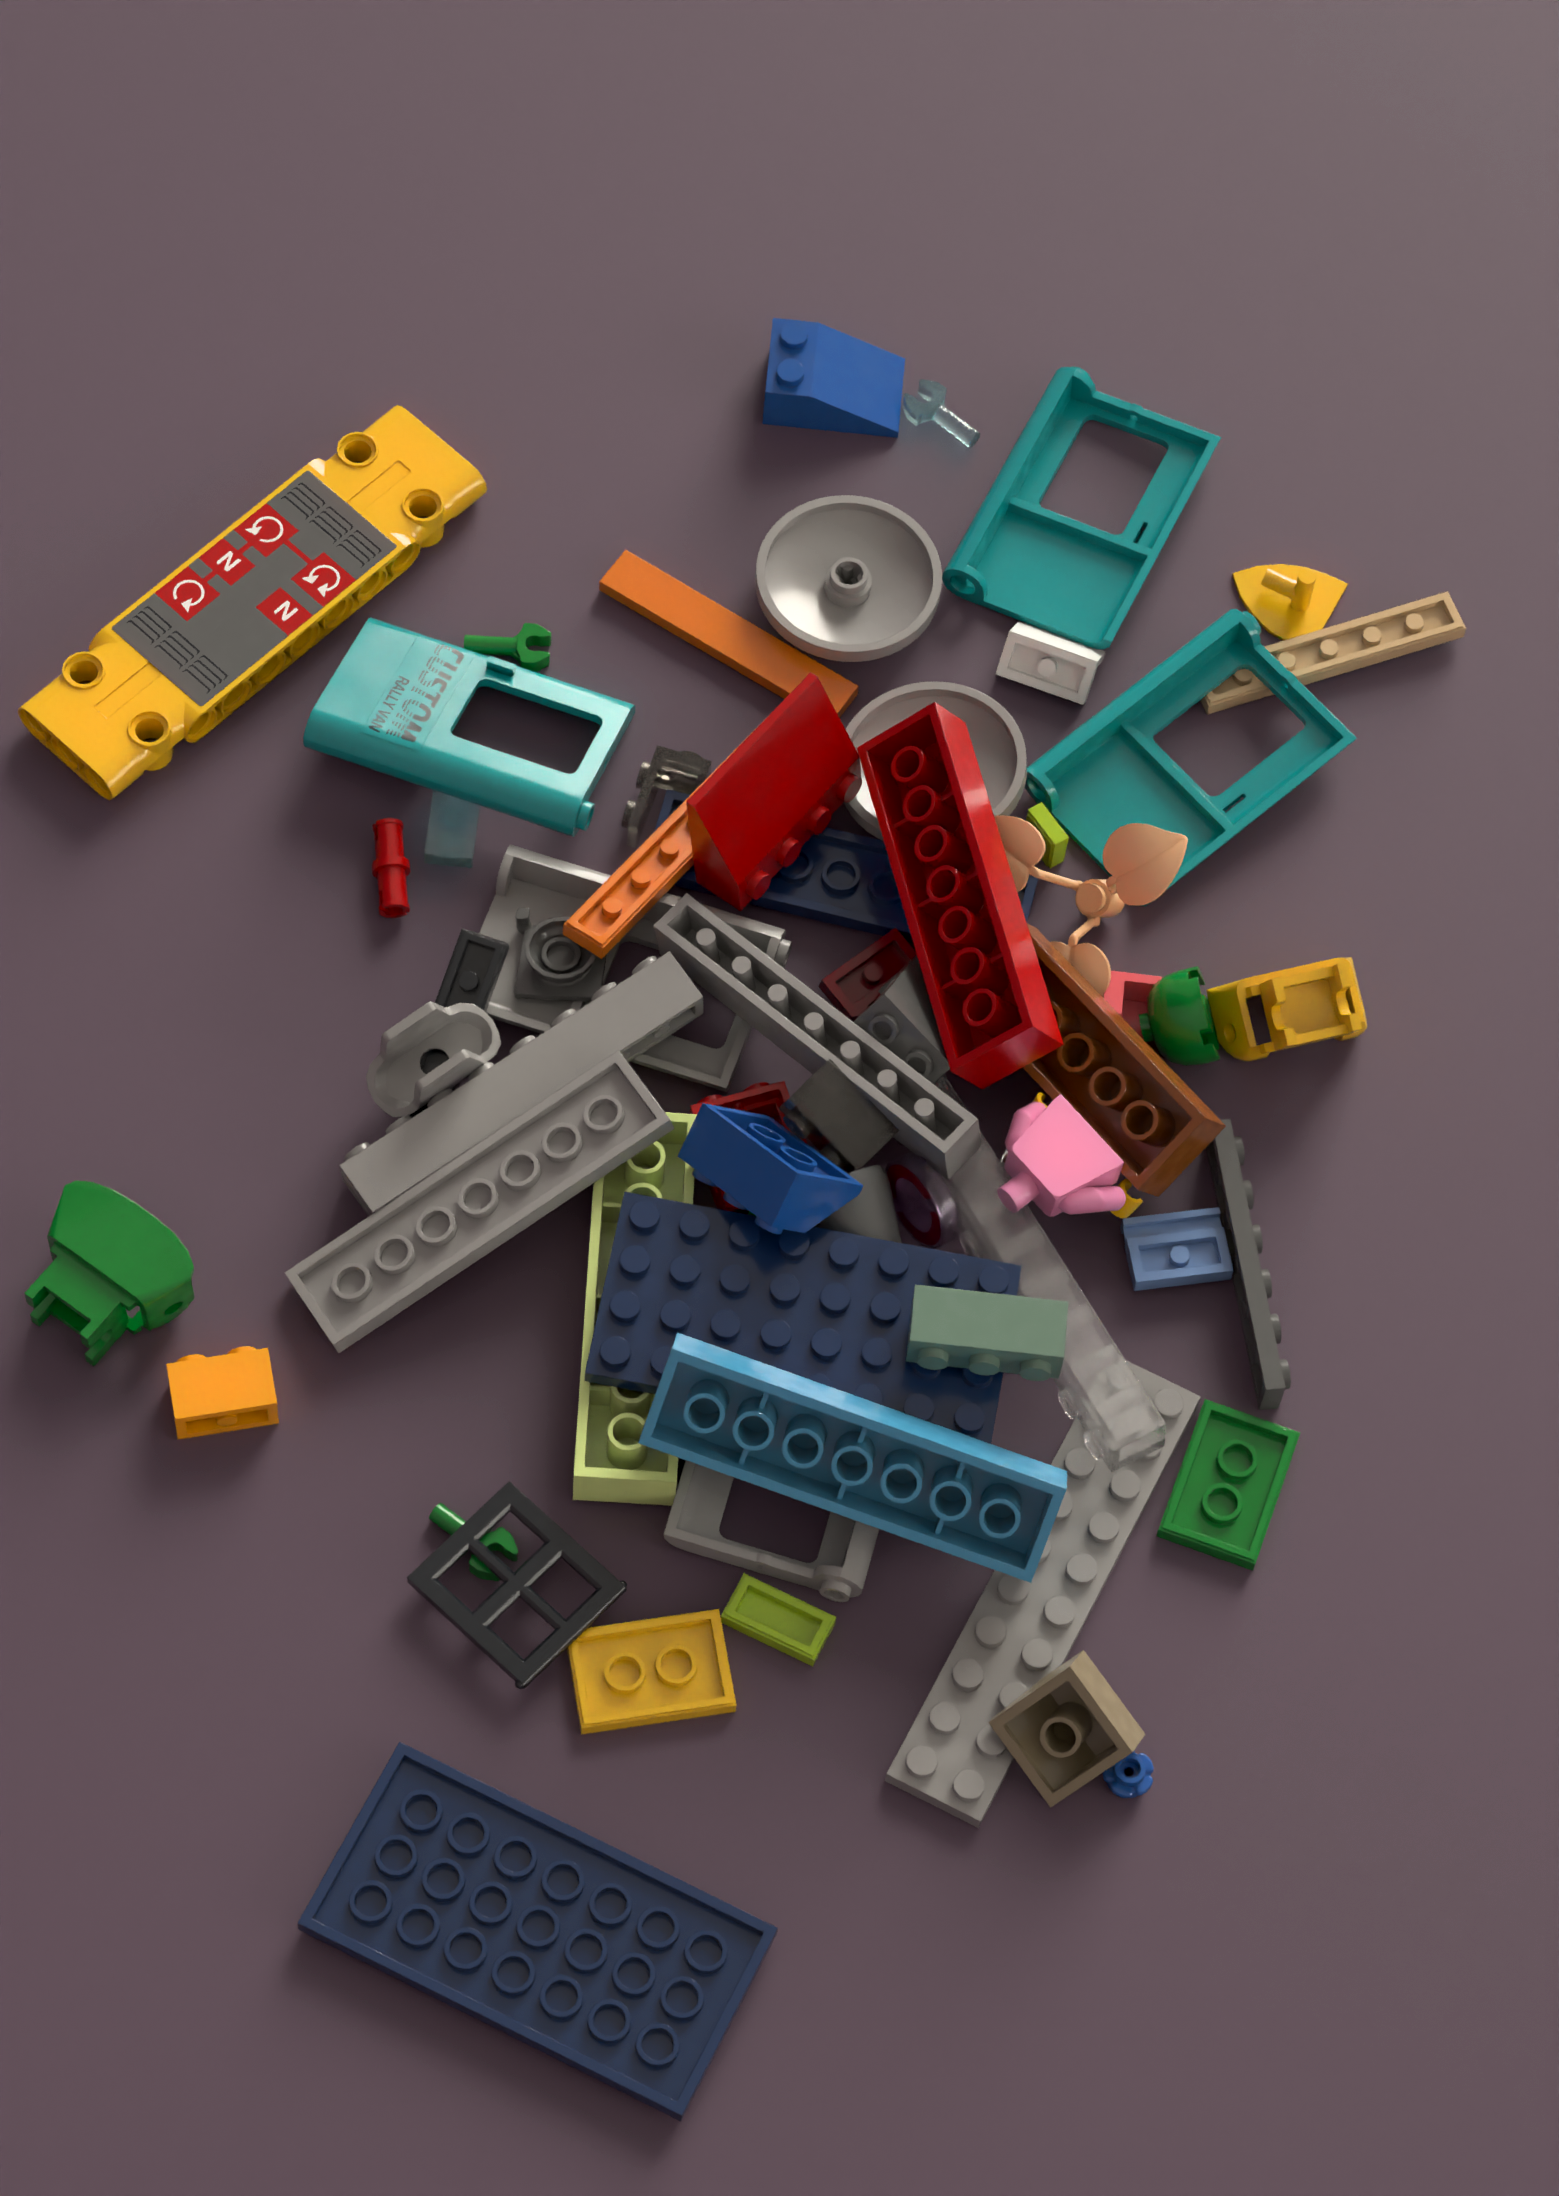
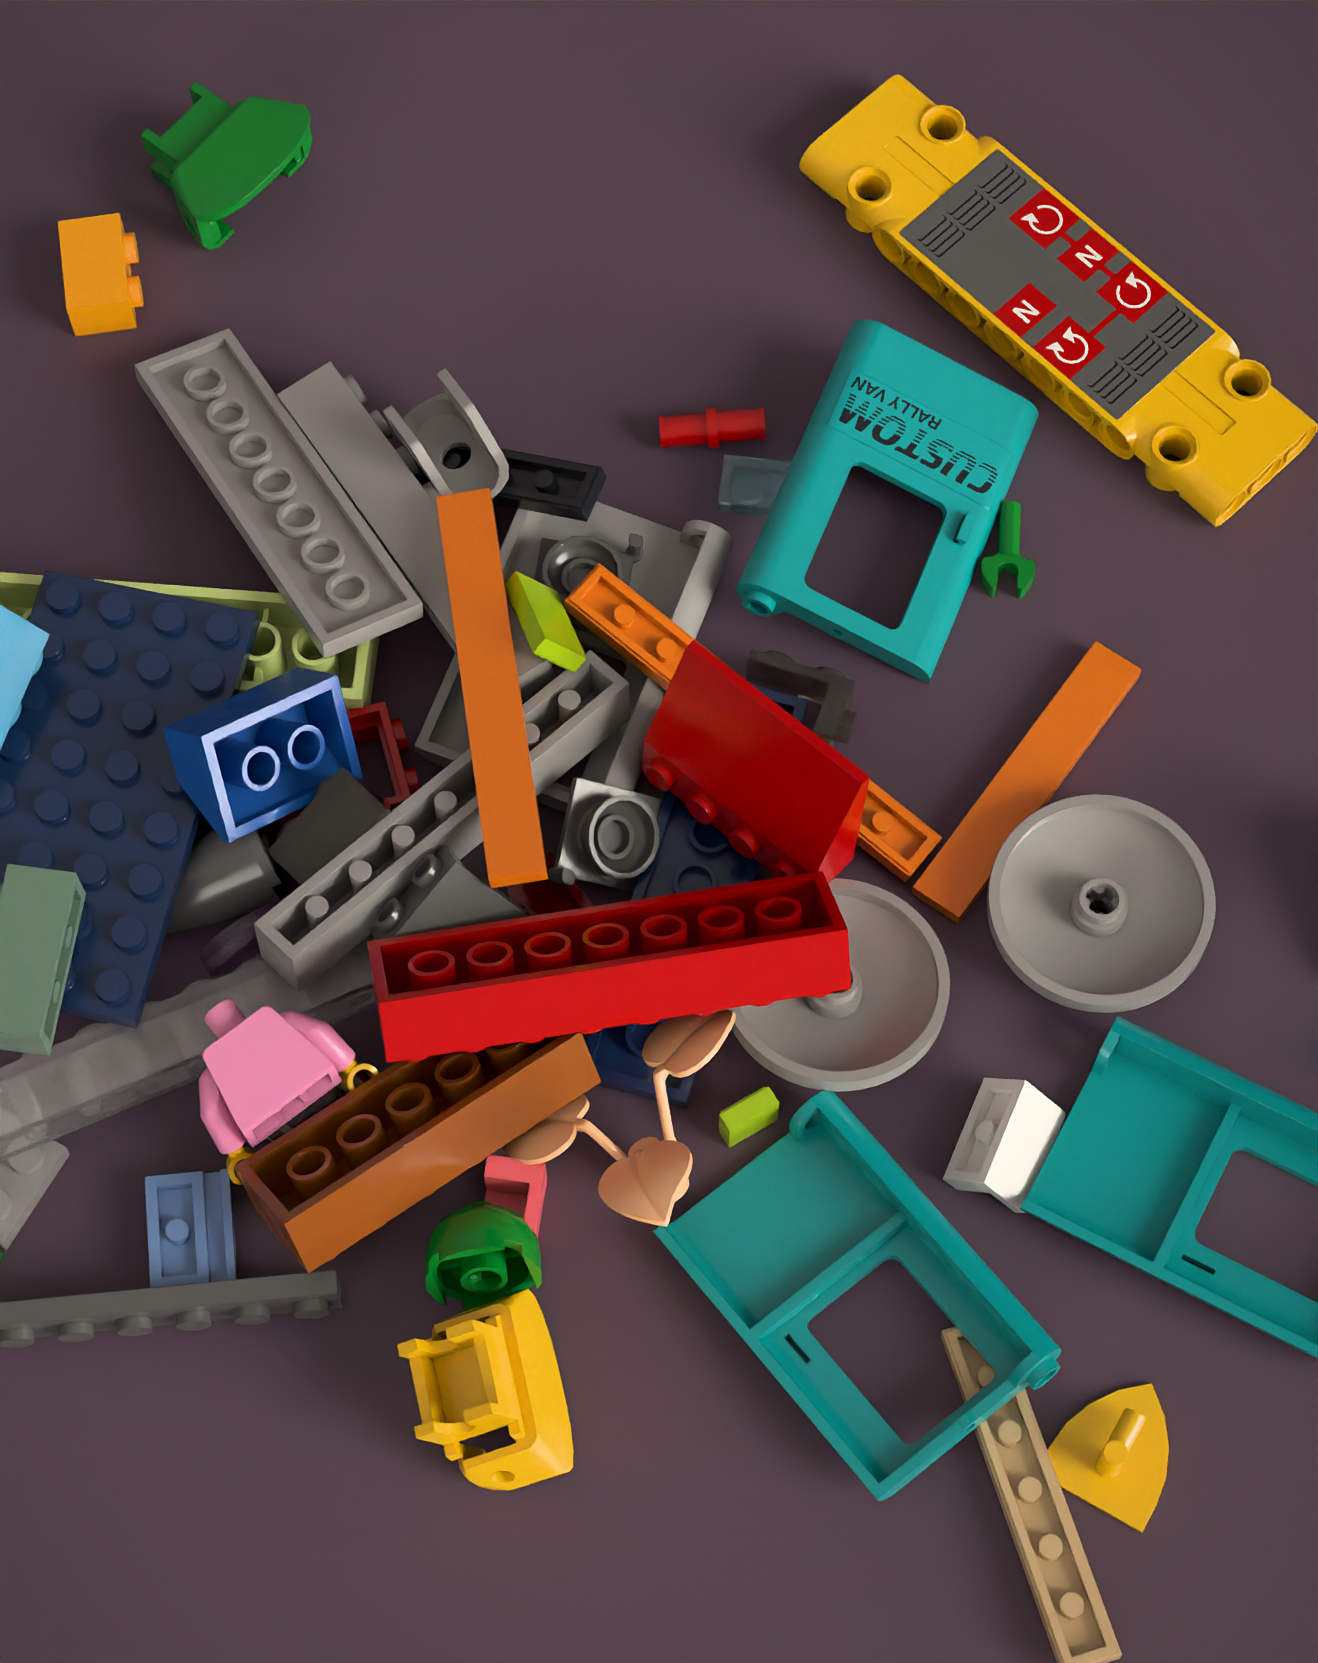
camera: 100 degrees right, 5 degrees up
(631, 956) = (545, 622): none -> lime tile
(699, 989) = (491, 690): none -> orange tile
(813, 930) = (606, 836): none -> dark grey hat

